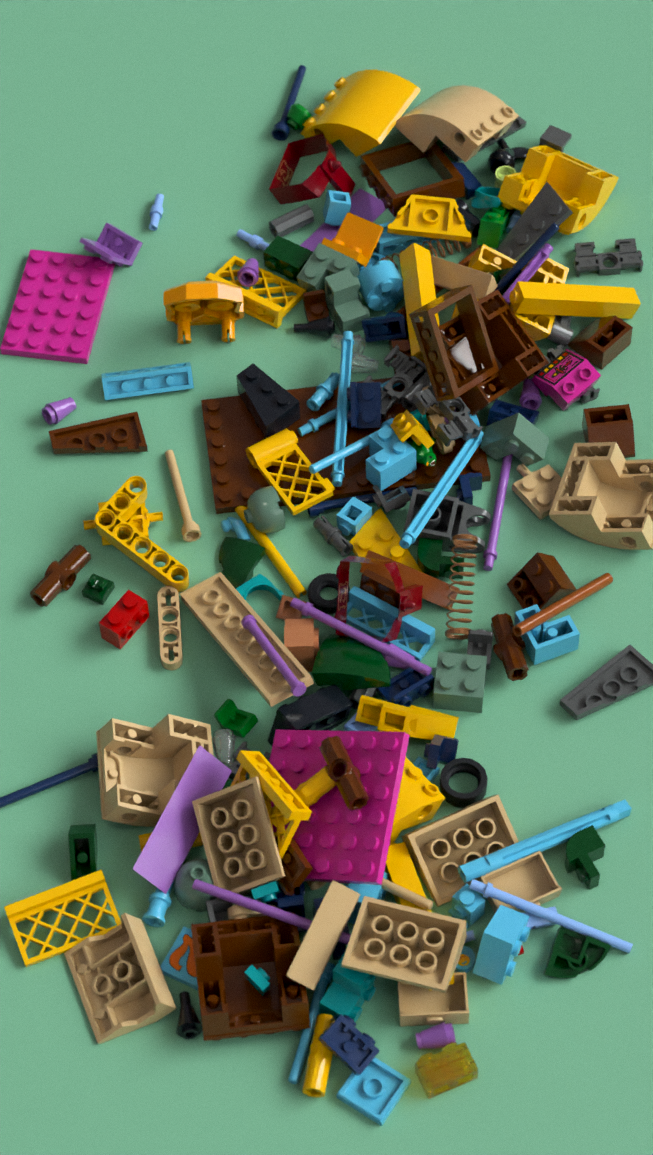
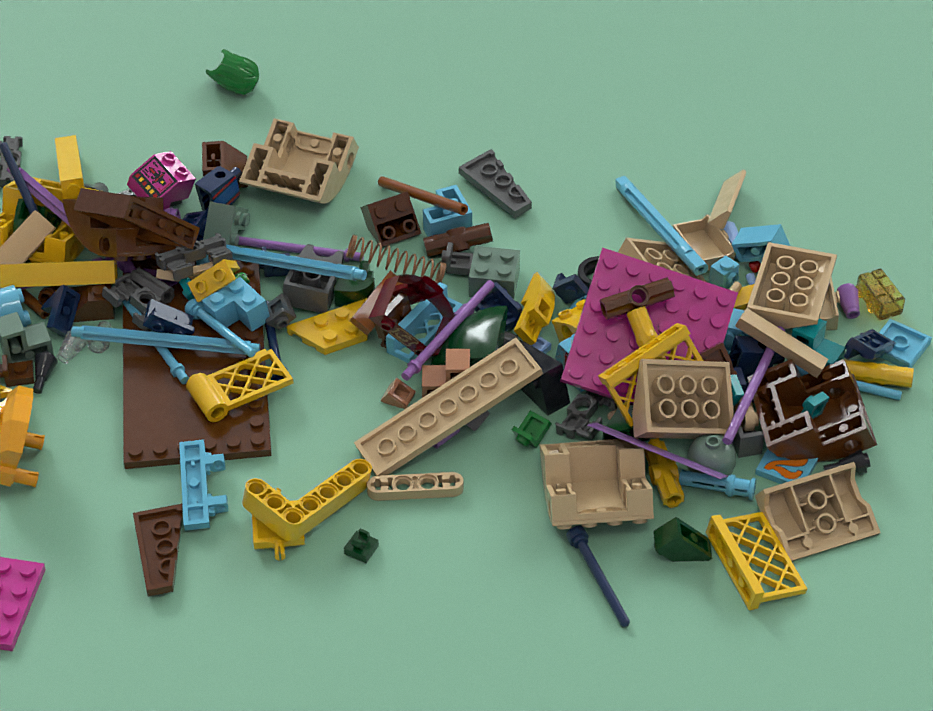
camera: 90 degrees left, 10 degrees down
(58, 410) = (115, 586): medium lavender cone -> none
(60, 575) = (344, 575): reddish brown piece -> none
(124, 619) = (408, 516): red brick -> none
(147, 380) = (89, 506): medium azure fence -> none
(187, 450) = (195, 498): none -> medium azure hinge
(190, 530) = (293, 470): tan piece -> none
(224, 746) = (560, 436): clear cone -> none
(236, 526) = (291, 437): medium azure arm -> none
(239, 559) = (335, 431): dark green brick -> none
(259, 583) = (370, 412): teal helmet -> none
(264, 511) = (287, 398): sand green cylinder -> none
(267, 401) = (146, 398): black wedge -> none
(274, 556) = (325, 411): yellow piece -> none
(297, 688) = (485, 369): medium lavender bar -> none
(315, 587) = (383, 355): black tyre -> none
(323, 392) = (137, 358): medium azure pin -> none
(333, 535) = (315, 360): dark grey pin -> none
(353, 516) = (297, 342): medium azure brick -> none
(489, 891) = (720, 249): light blue bar -> none
(537, 488) = (280, 216): tan plate -> none
(562, 427) = (219, 187): none -> dark blue torso
(574, 954) = (759, 214): dark green brick -> none
(580, 854) = (672, 206): dark green brick -> none
(589, 911) = (726, 200): none -> tan slope
(602, 340) = (109, 163): reddish brown slope -> none

